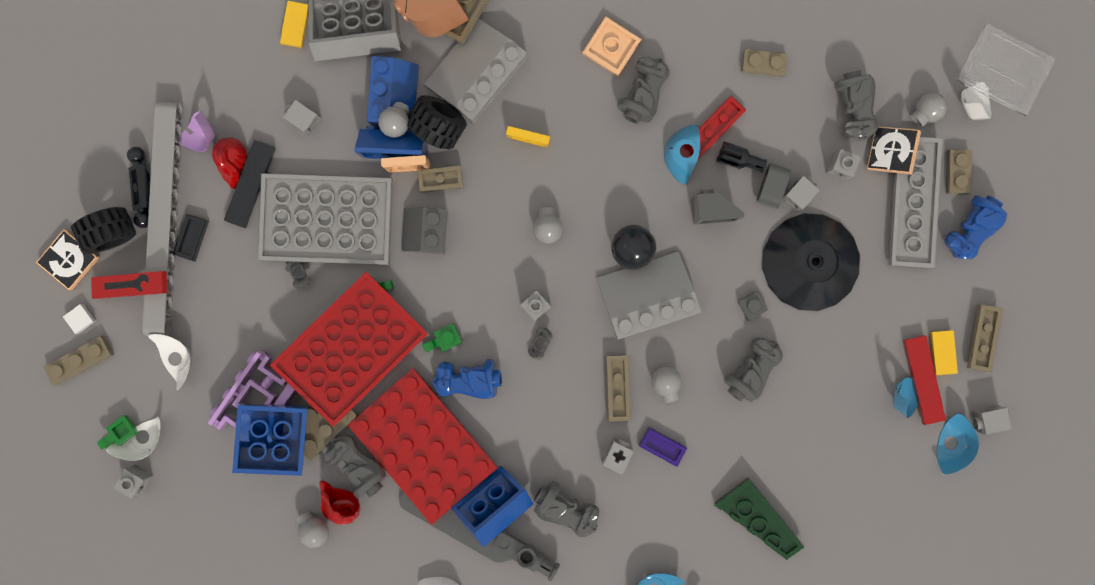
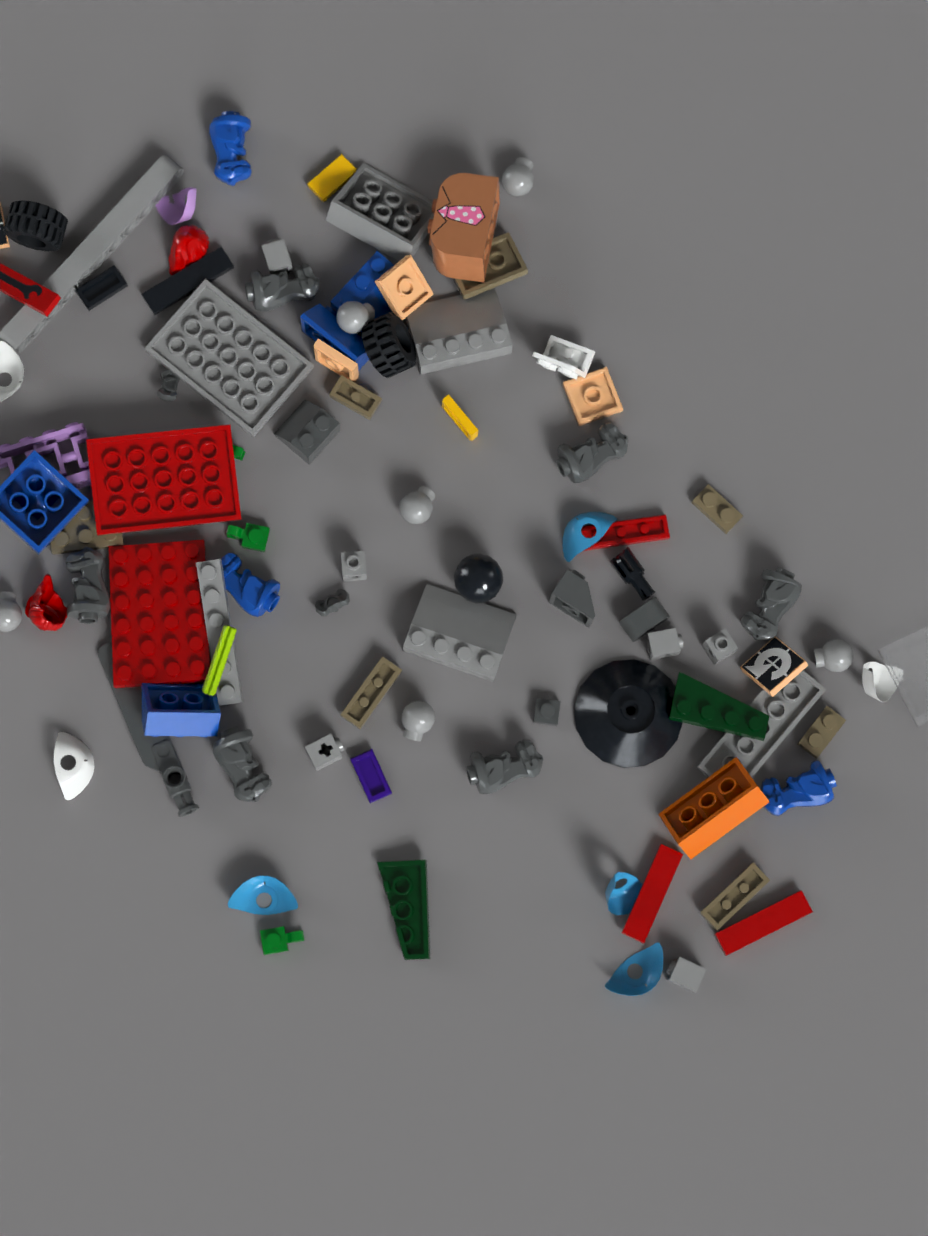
camera: 30 degrees right, 10 degrees down
(139, 181) = (92, 213): black plate -> none
(196, 55) = (228, 140): none -> blue animal
(320, 143) = (277, 290): none -> dark grey animal
(413, 68) = (404, 287): none -> light nougat tile
(476, 427) = (216, 616): none -> light grey plate
(493, 451) = (219, 660): none -> lime axle
(572, 30) = (566, 356): none -> white bracket
(869, 216) = (709, 708): none -> dark green wing
(926, 287) = (713, 808): none -> orange slope
(943, 352) = (688, 882): yellow tile -> none
(1017, 340) = (763, 923): none -> red tile

